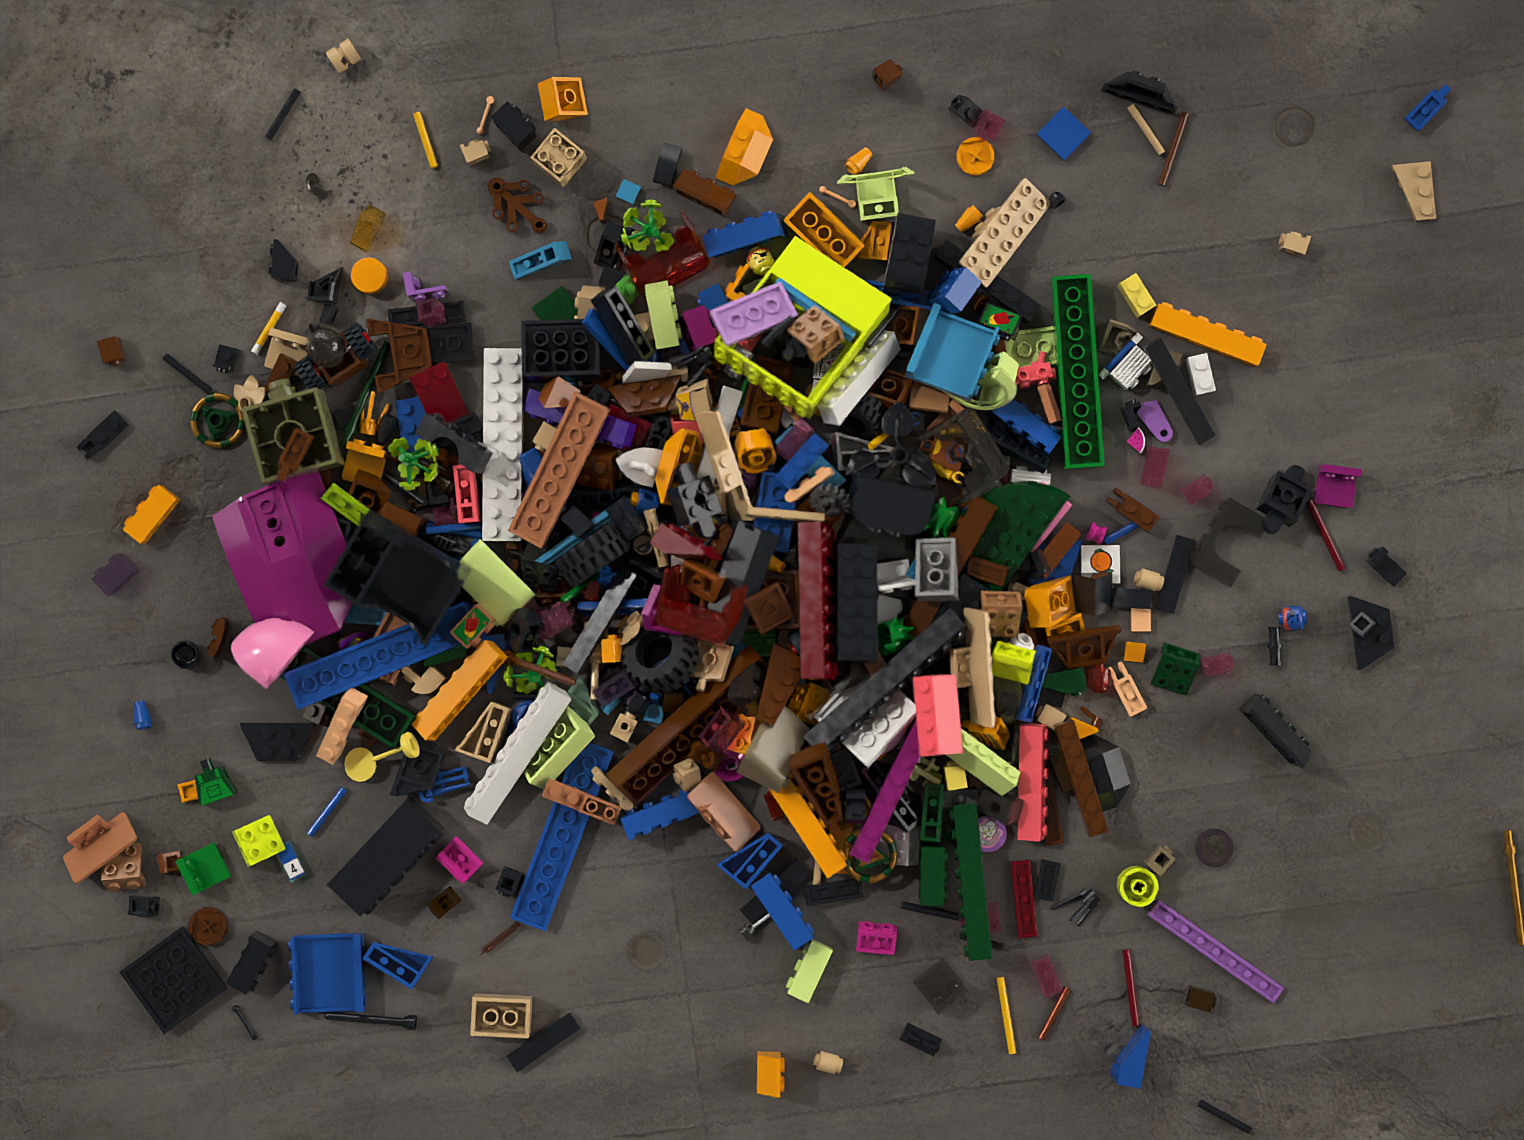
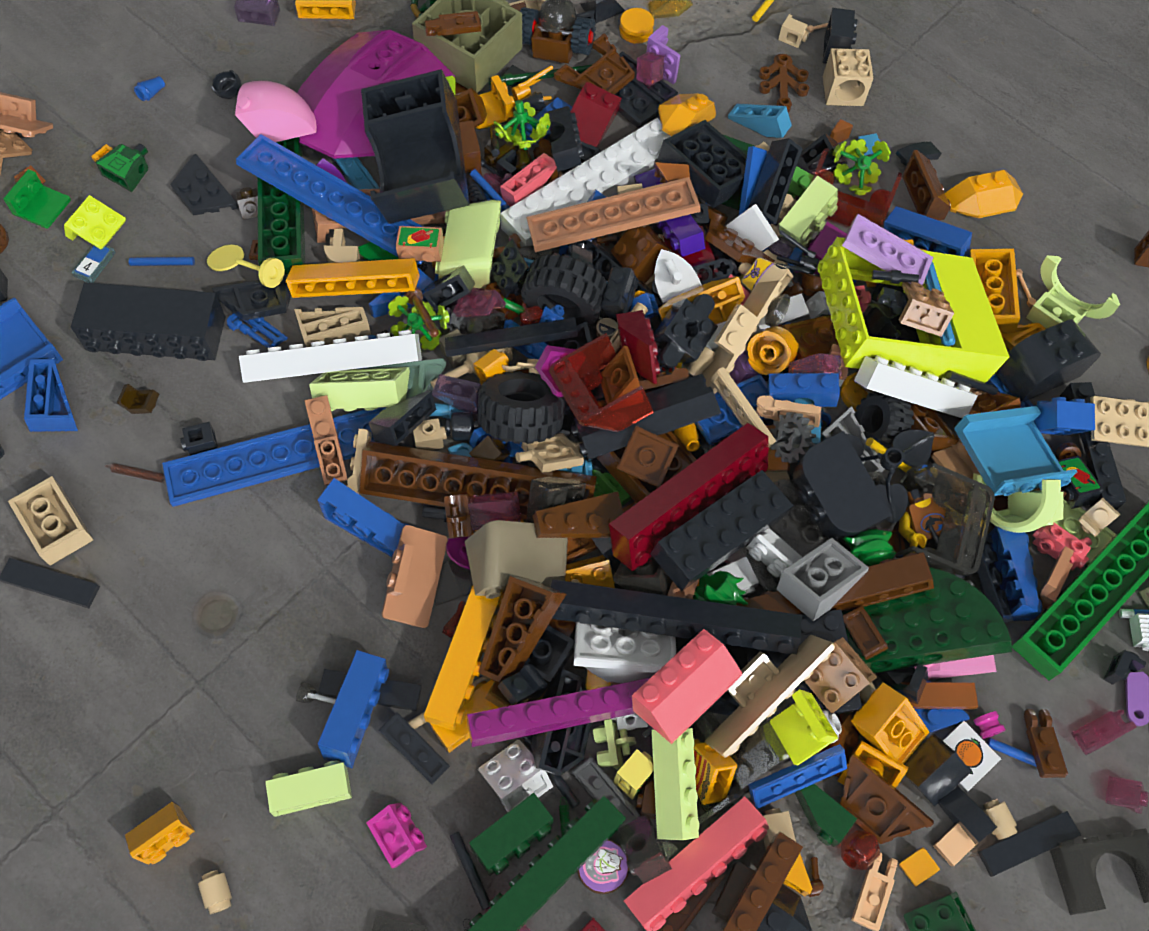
camera: 40 degrees right, 25 degrees down
(343, 719) = (266, 199): light nougat arch -> none
(459, 860) = (190, 385): dark pink bracket -> none
(496, 324) = (685, 111): none -> light orange wedge
(562, 98) = (891, 58): light orange slope -> none
(606, 742) = (401, 419): none -> black slope
(687, 774) = (426, 514): tan brick -> none
(730, 422) = (777, 310): none -> clear smoke hat
(751, 860) = (387, 637): blue wedge -> none
(858, 161) = (1070, 280): light orange cone -> none
(878, 857) = (483, 756): piece -> none
(931, 814) = (575, 782): dark green slope -> none
(969, 219) = (1121, 392): light orange cone -> none
(1035, 334) = (1098, 517): none -> tan bracket
(1051, 697) = (798, 818): black sticker -> none
(1137, 440) = (1105, 694): dark pink tile -> none

